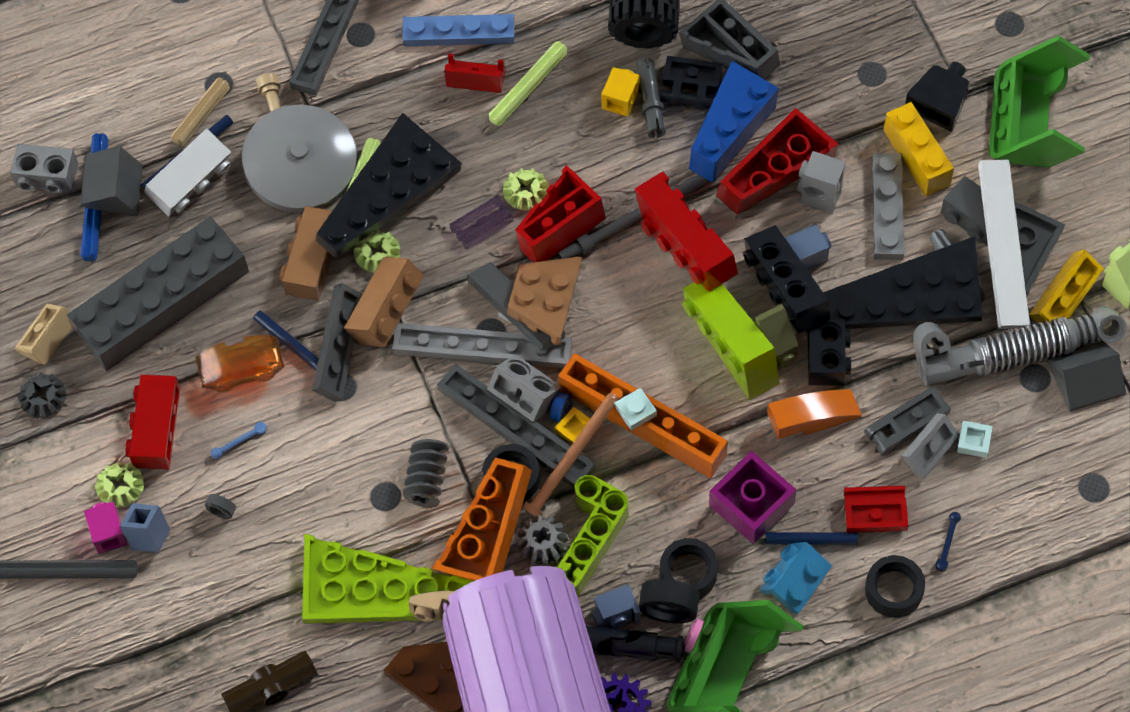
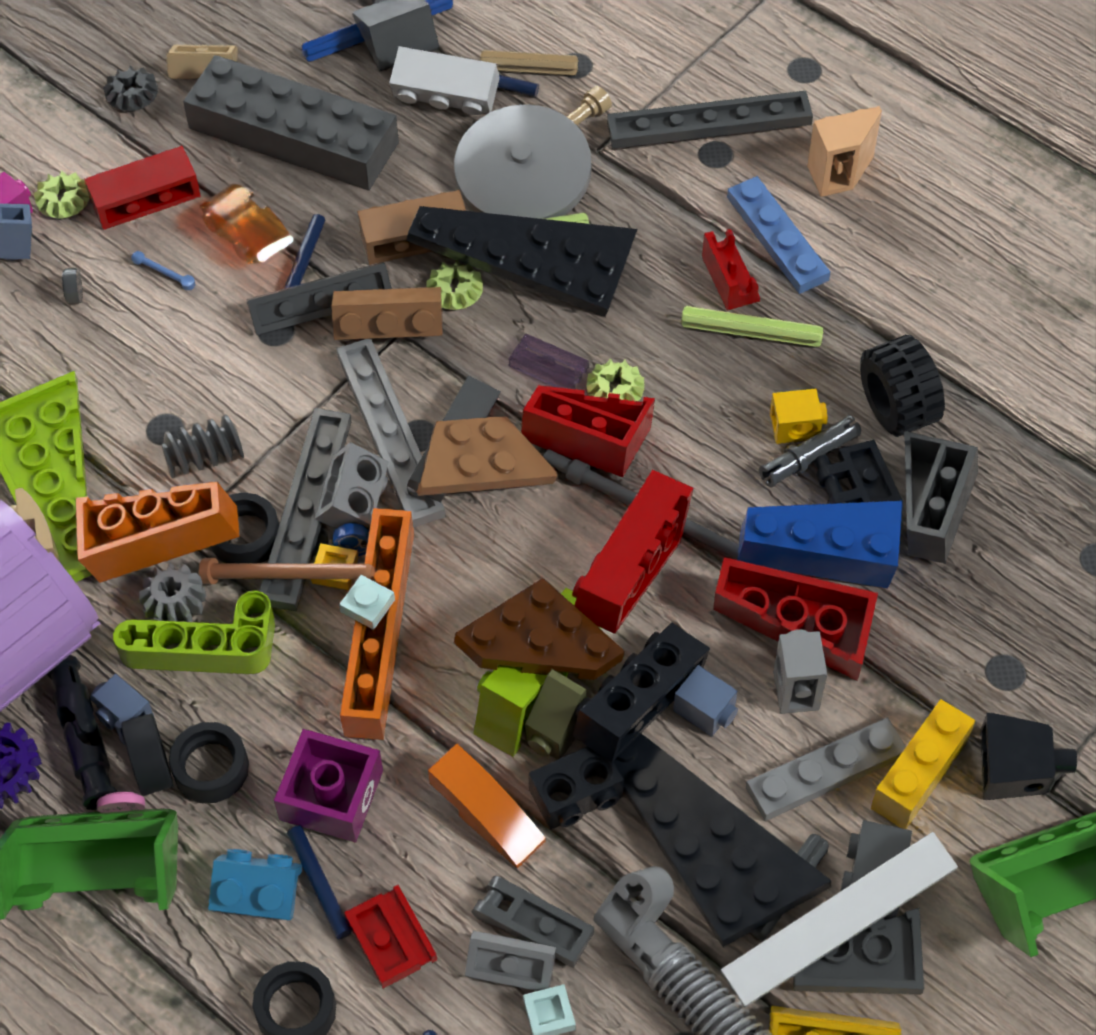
camera: 60 degrees right, 5 degrees down
(721, 315) = (539, 634): none -> reddish brown plate

